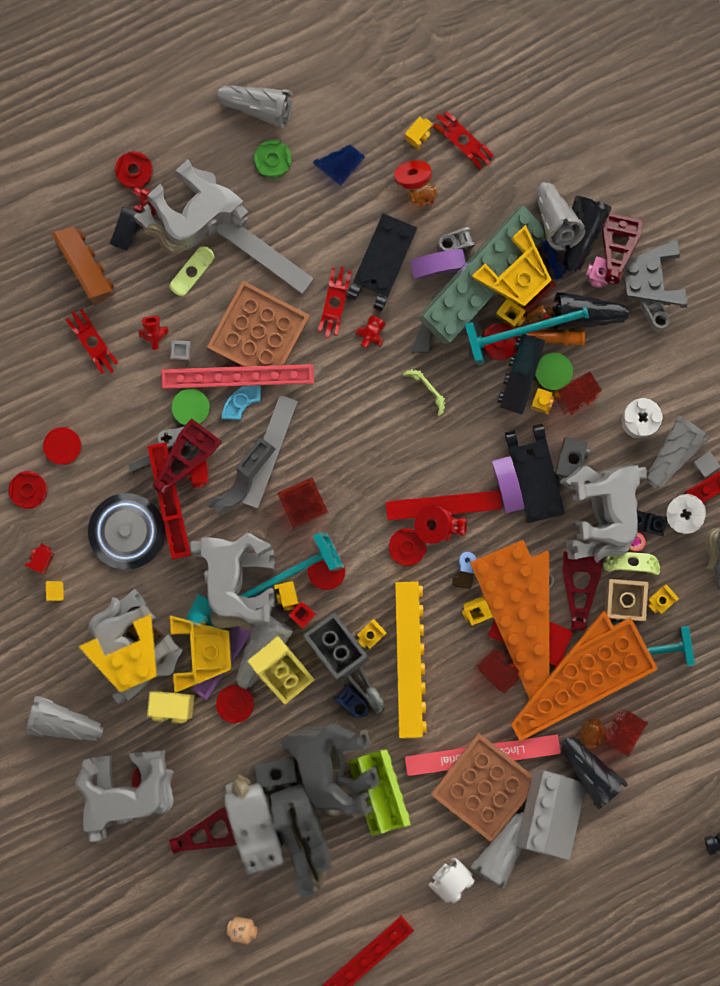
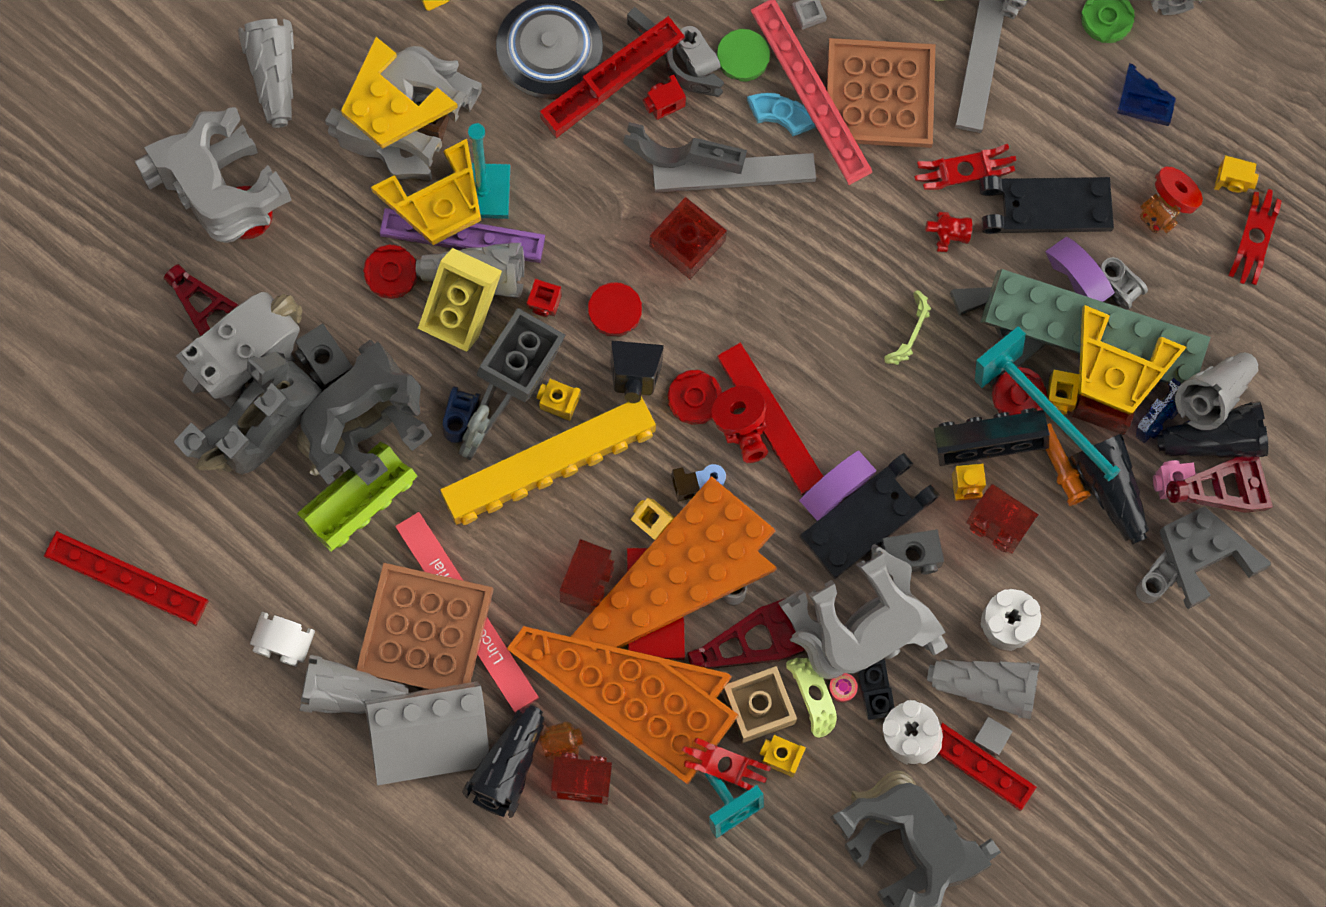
camera: 60 degrees right, 10 degrees down
(170, 705) = (351, 185): light yellow brick -> none
(200, 438) = (709, 74): dark red plate -> none
(225, 580) = (548, 183): light grey piece -> none
(241, 930) = (101, 404): light nougat head -> none
(287, 595) = (562, 270): yellow brick -> none
(327, 552) = (637, 293): teal tile -> none
(375, 577) = (635, 368): none -> black torso
(539, 314) = (1083, 424): clear orange head -> none
(554, 371) = (1017, 477): bright green tile -> none
(662, 635) = (736, 769): none -> red piece

